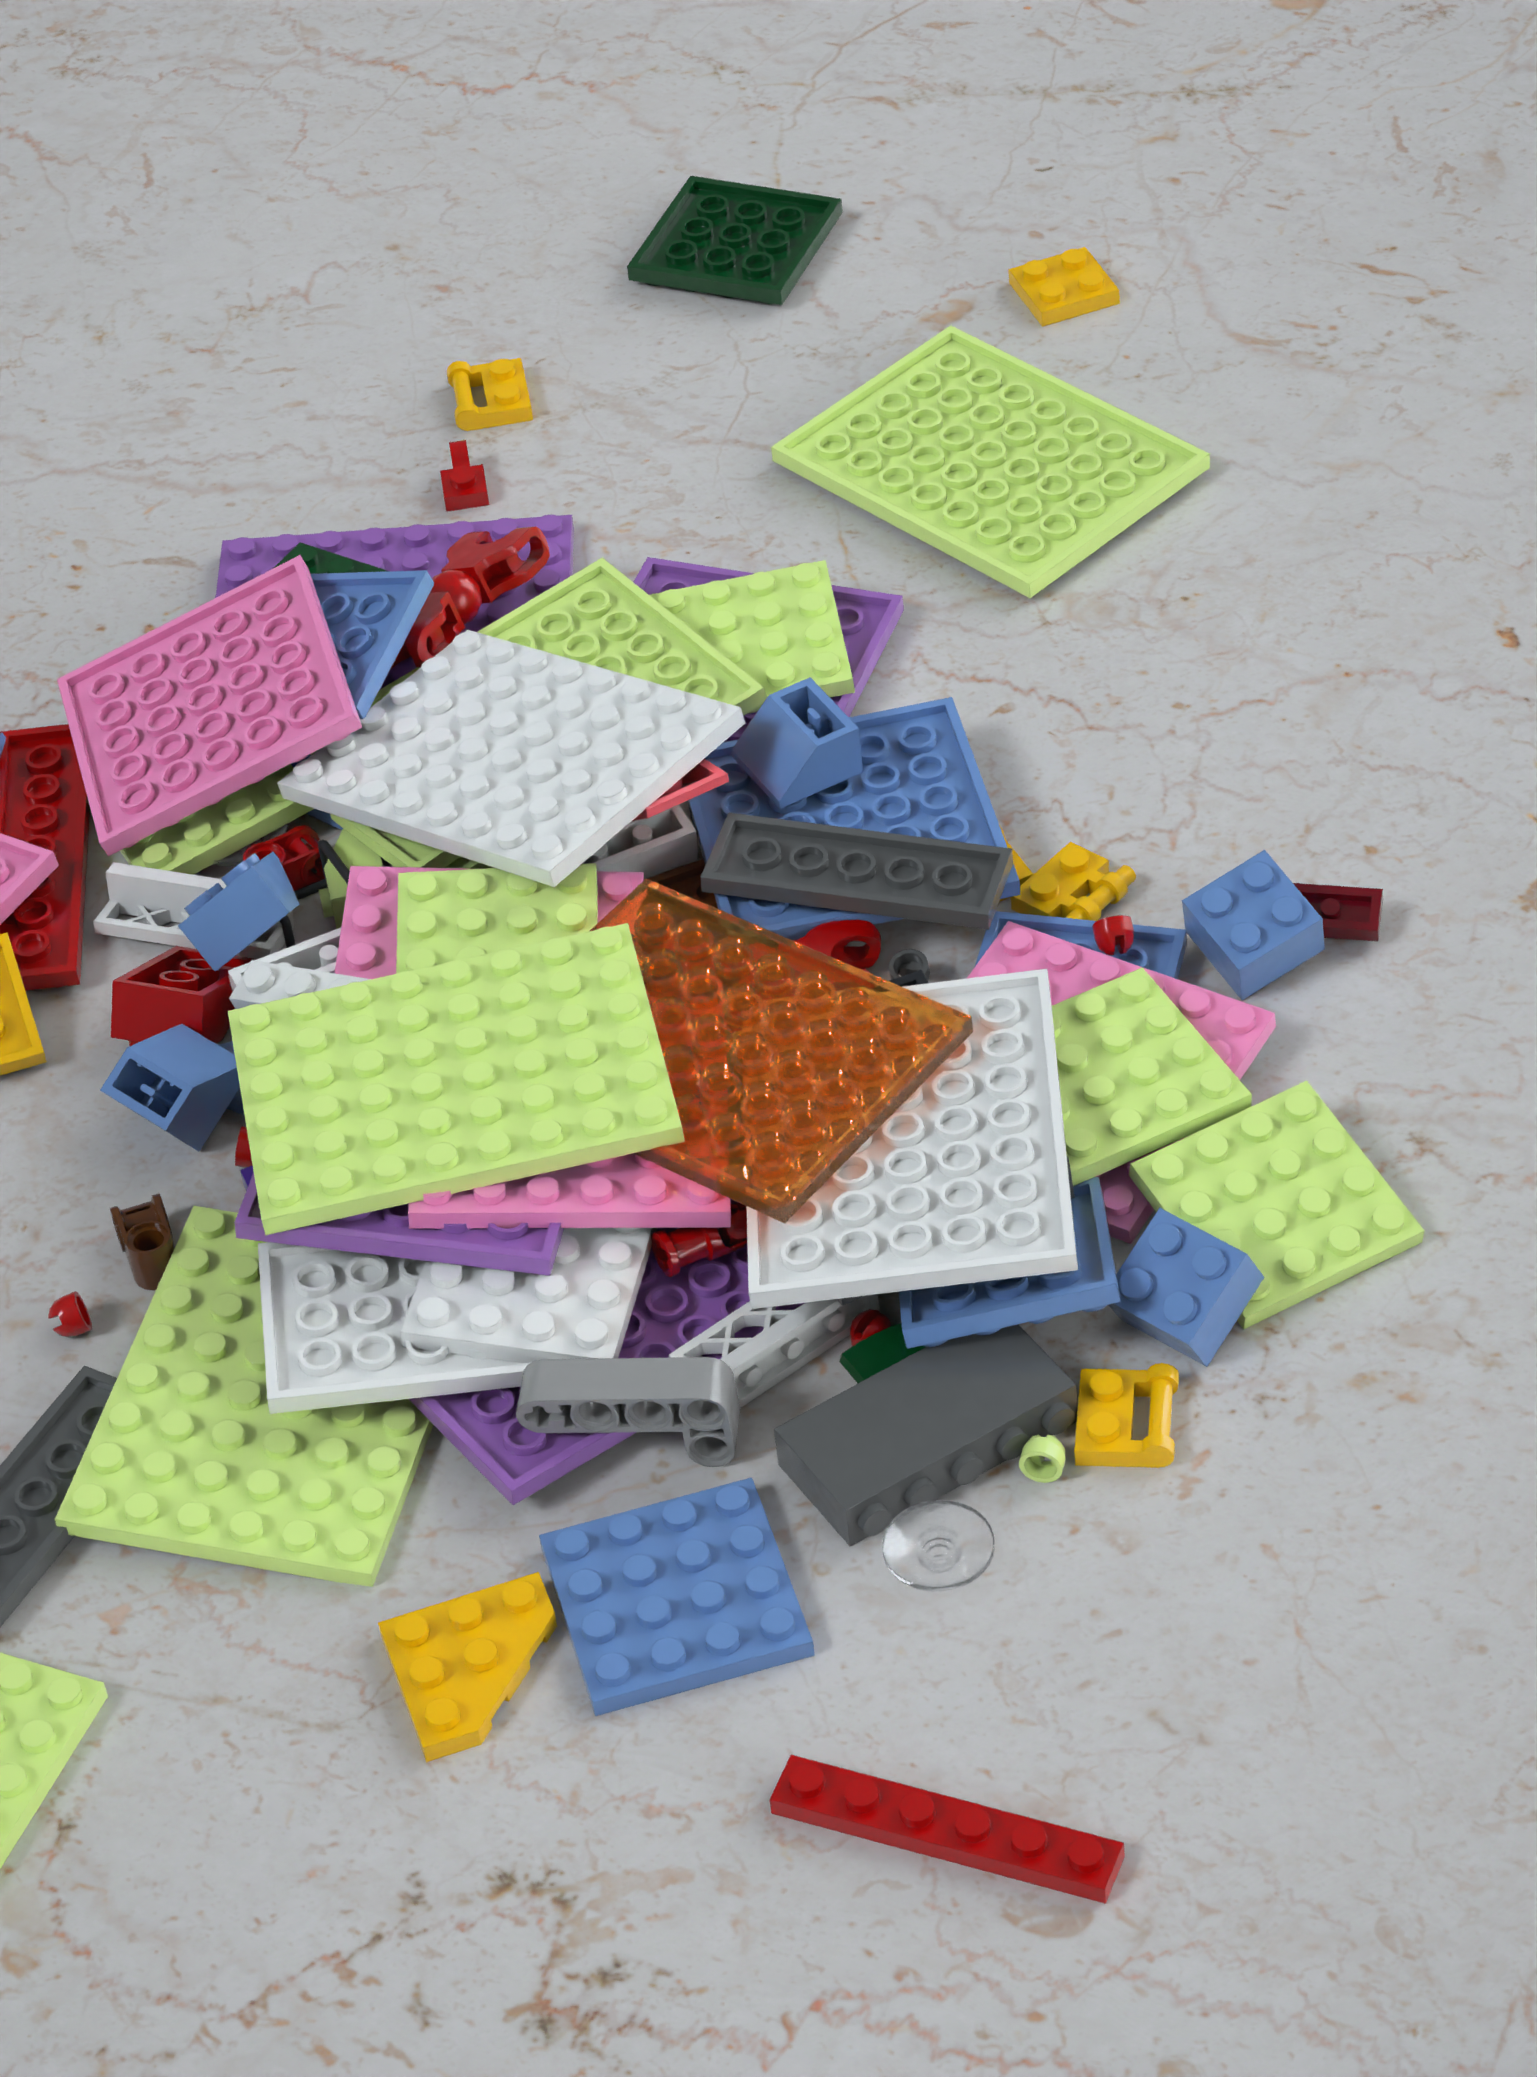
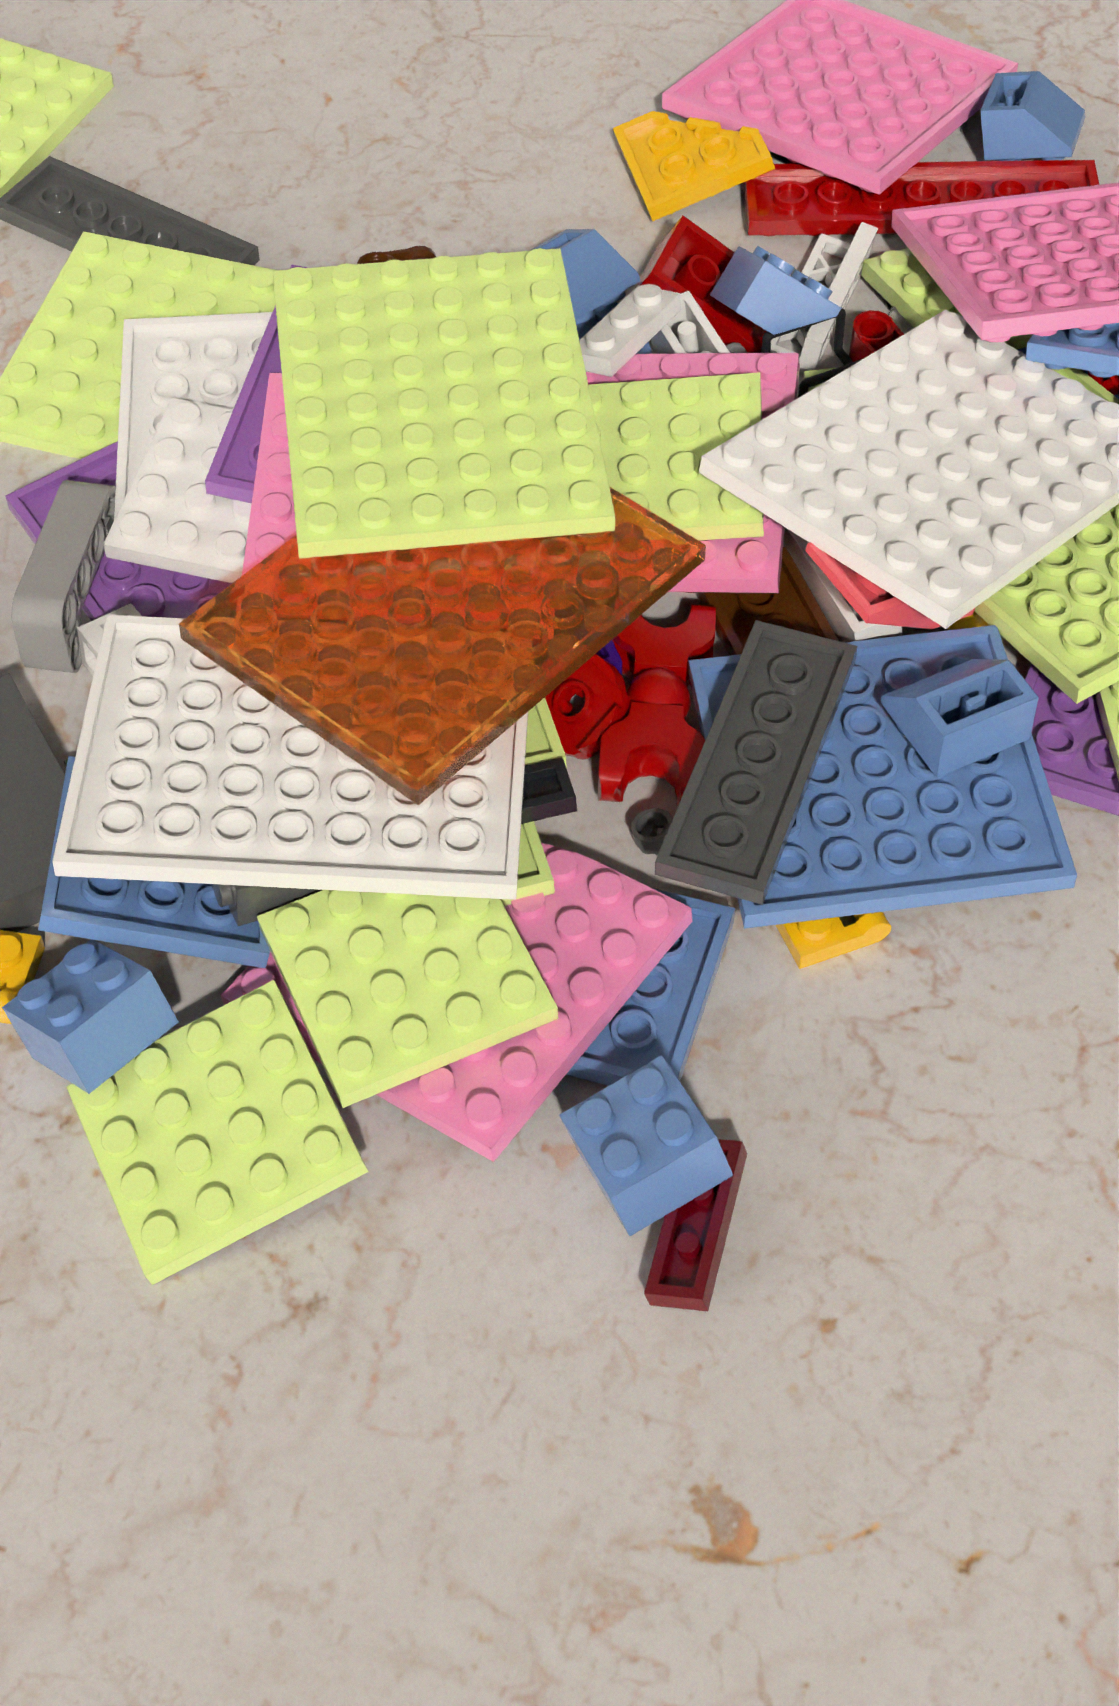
camera: 90 degrees right, 10 degrees up
(72, 1315) = (320, 248): red hinge -> none
(1066, 879) = (788, 987): yellow plate -> none
(1114, 932) = (655, 1006): red hinge -> none

